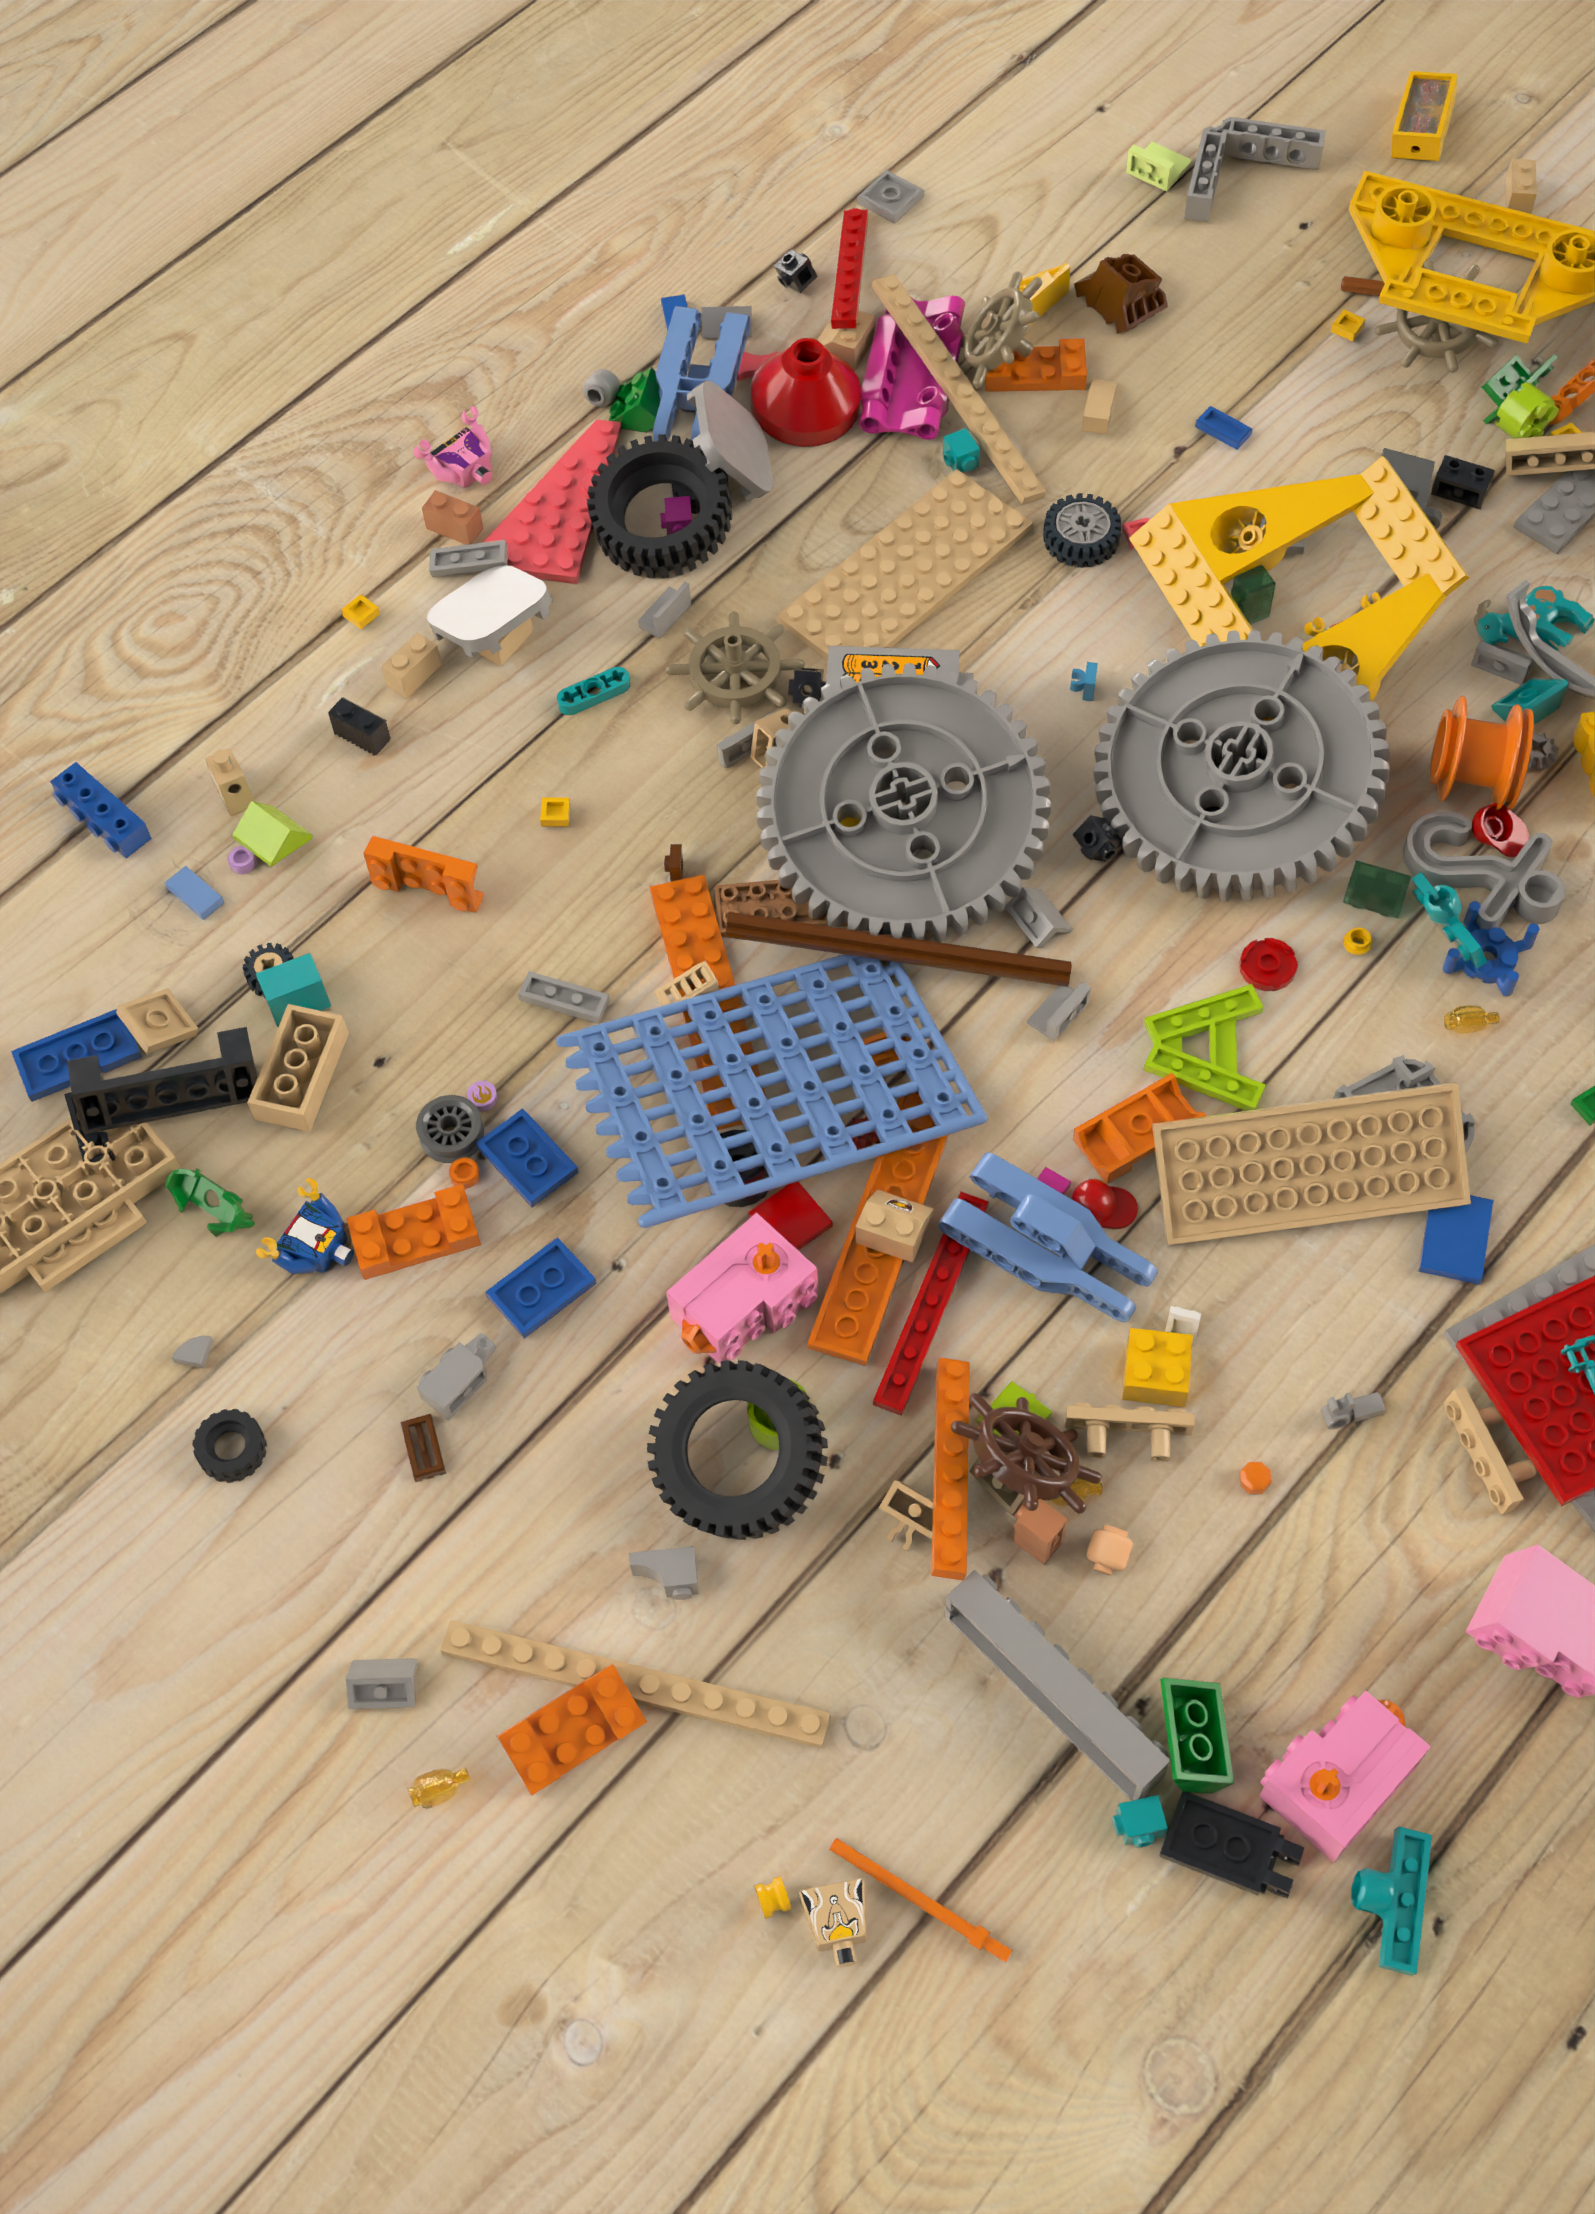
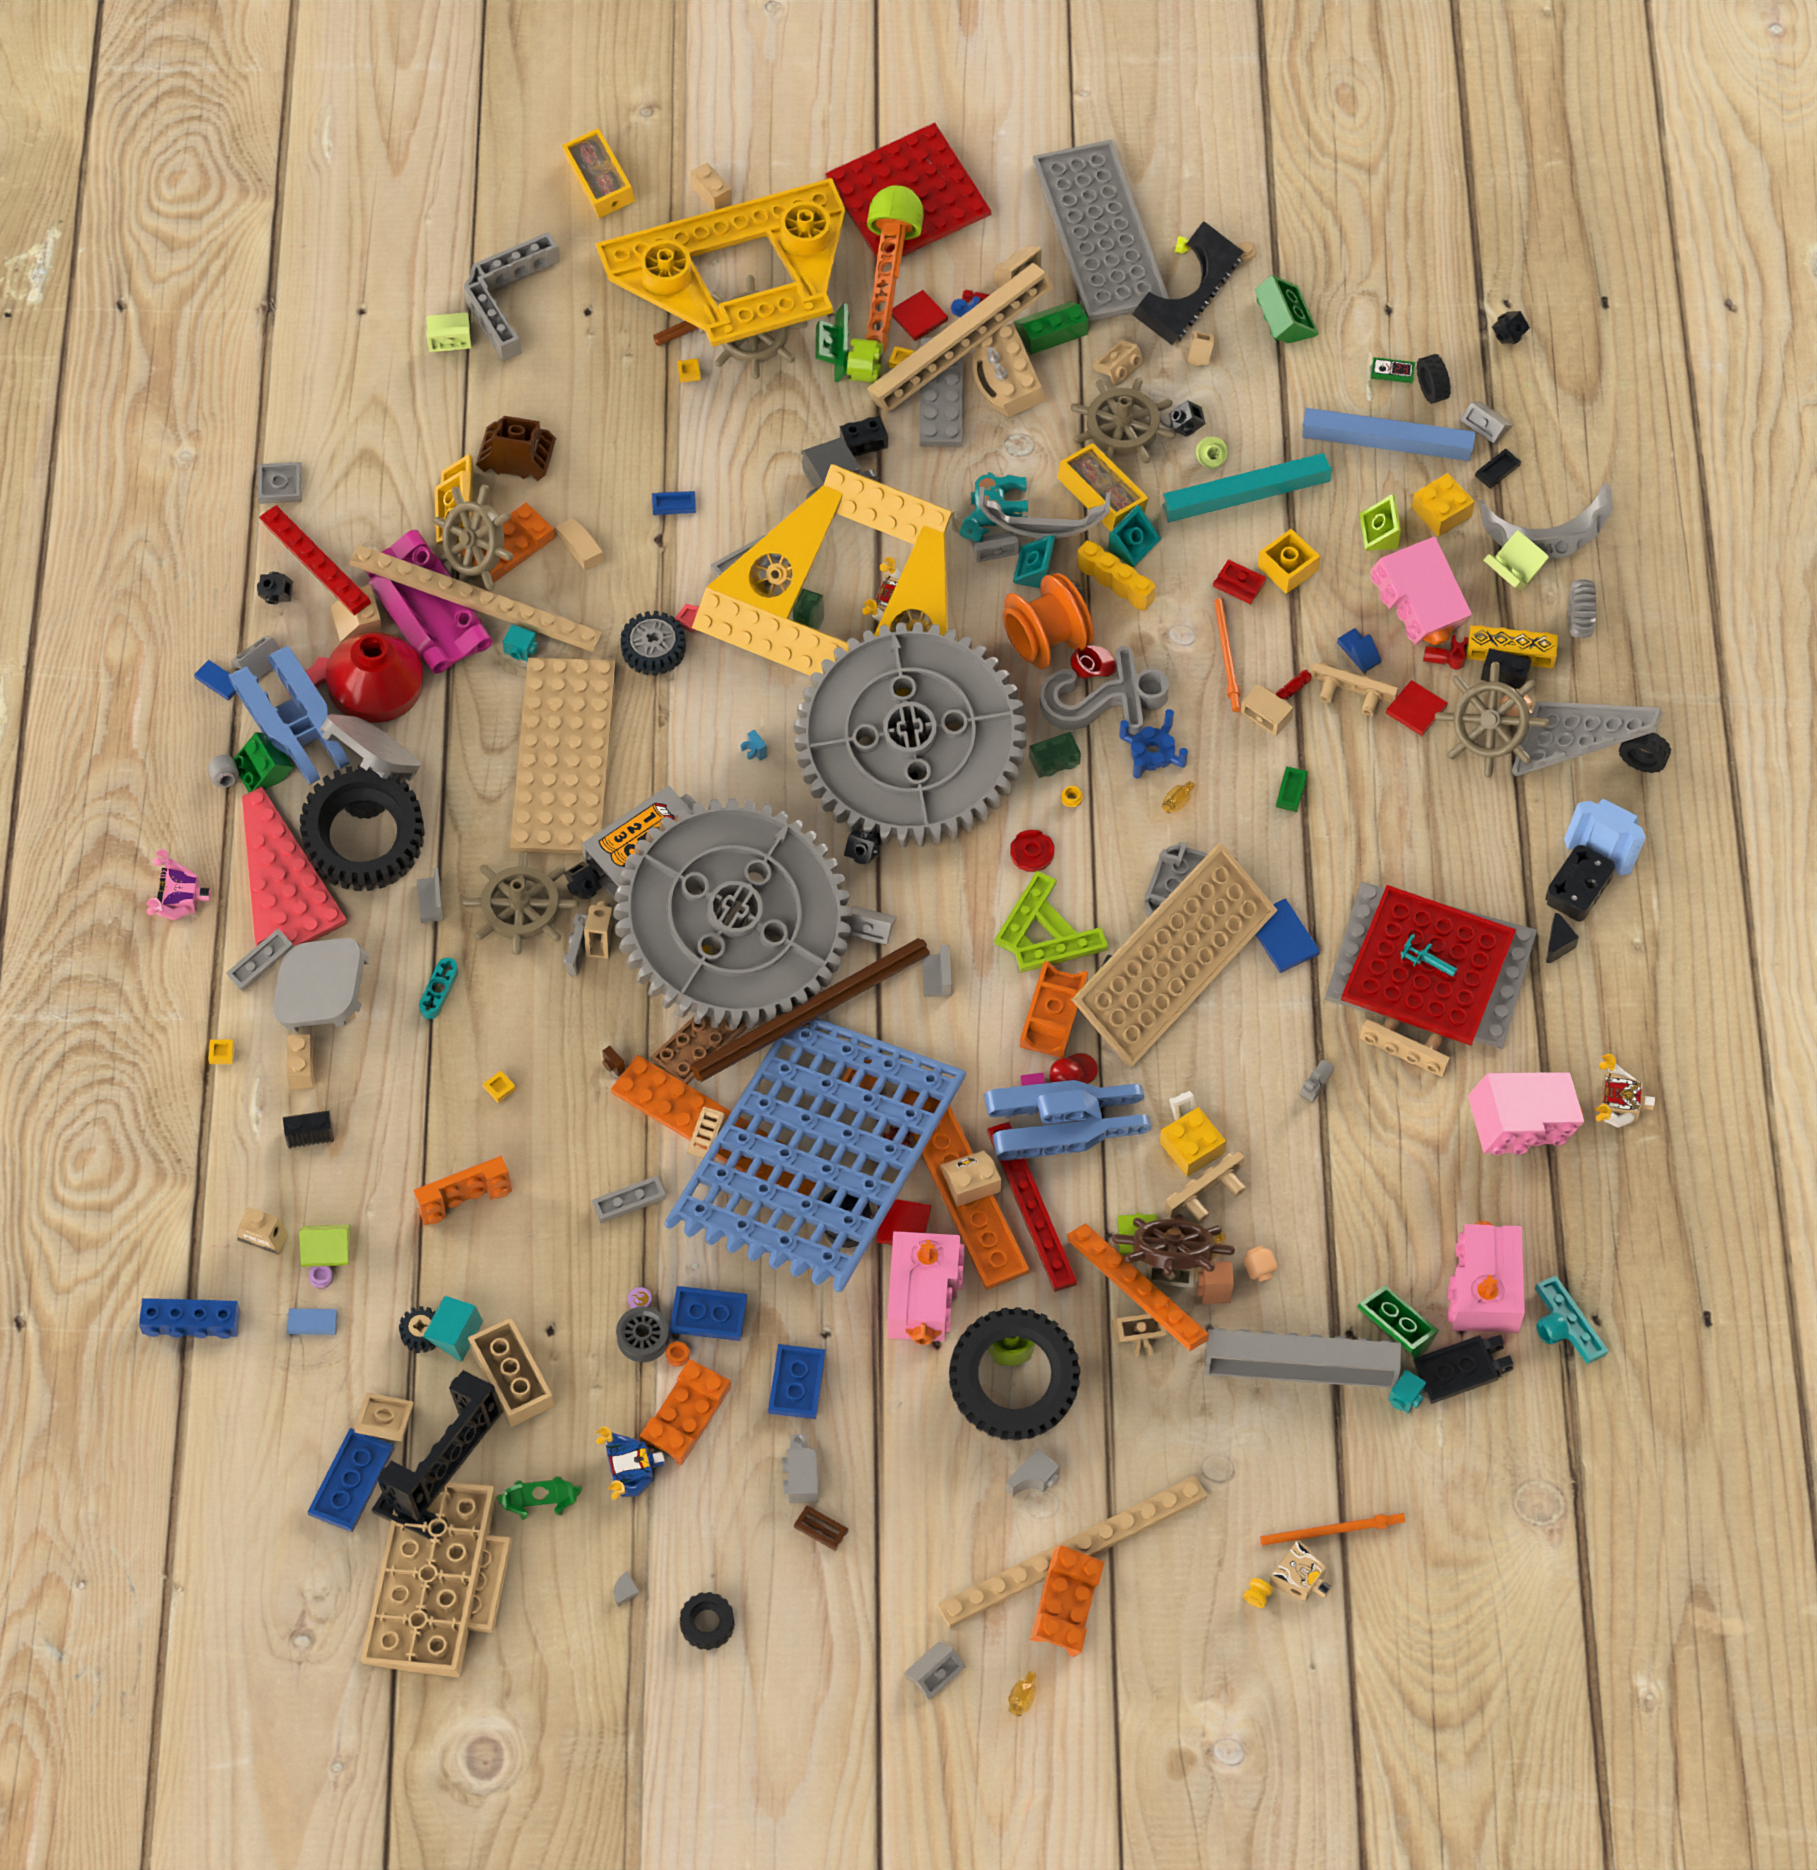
camera: 45 degrees left, 0 degrees up
(452, 518) = (217, 939): nougat brick -> none
(676, 514) = (374, 827): magenta brick -> none
(1255, 1478) = (1299, 1161): orange tile -> none
(1444, 908) = (1111, 739): teal plate -> none

